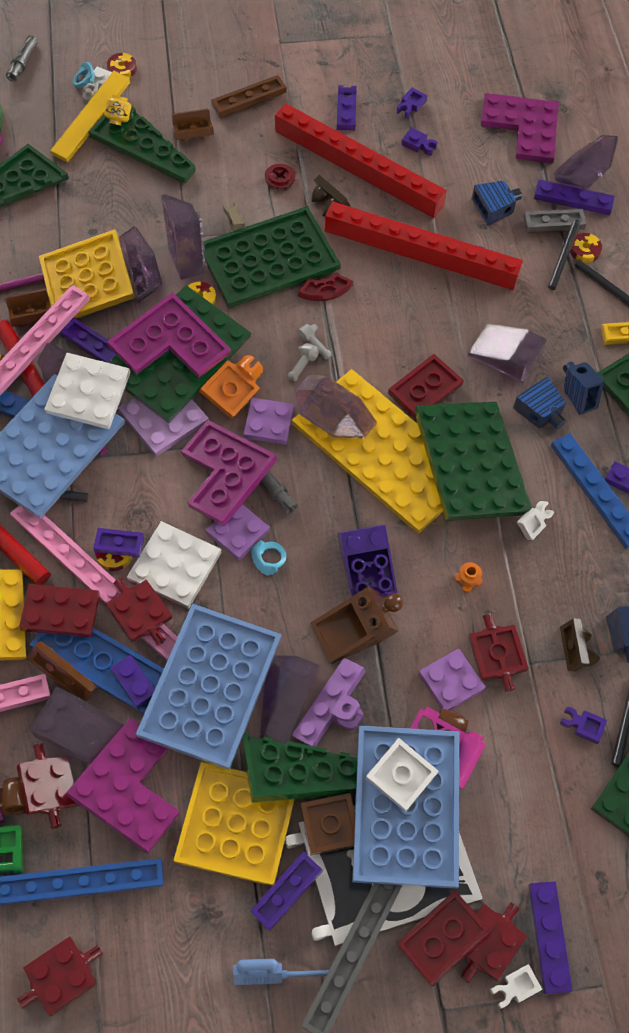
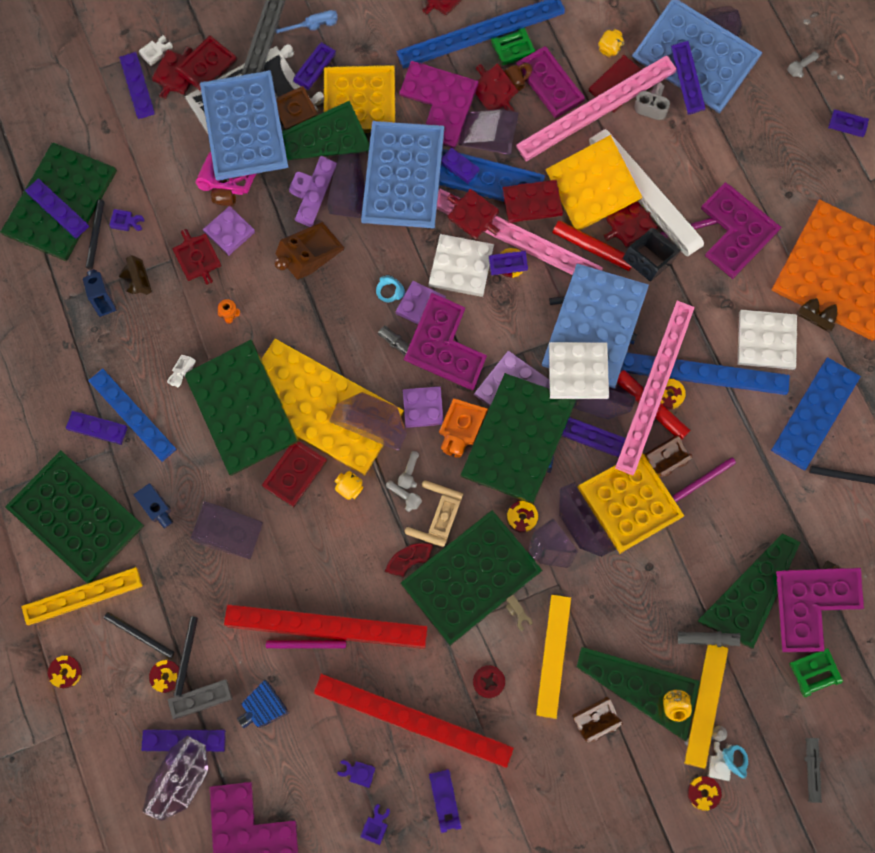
camera: 170 degrees right, 10 degrees up
(57, 154) = (704, 638): none -> dark grey pin
(61, 671) = (513, 160): reddish brown plate -> none
(173, 328) = (530, 444): magenta plate -> none
(217, 176) = (553, 657): none -> yellow tile
(248, 96) = (552, 784): reddish brown plate -> none
(280, 311) = (443, 517): none -> tan plate
(323, 190) = (424, 664): dark brown tile -> none
(367, 559) = (312, 303): dark purple slope -> none
(370, 359) = (348, 485): none -> yellow head
(402, 774) = (249, 134): white plate -> none
(541, 404) = (188, 480): dark blue torso -> none

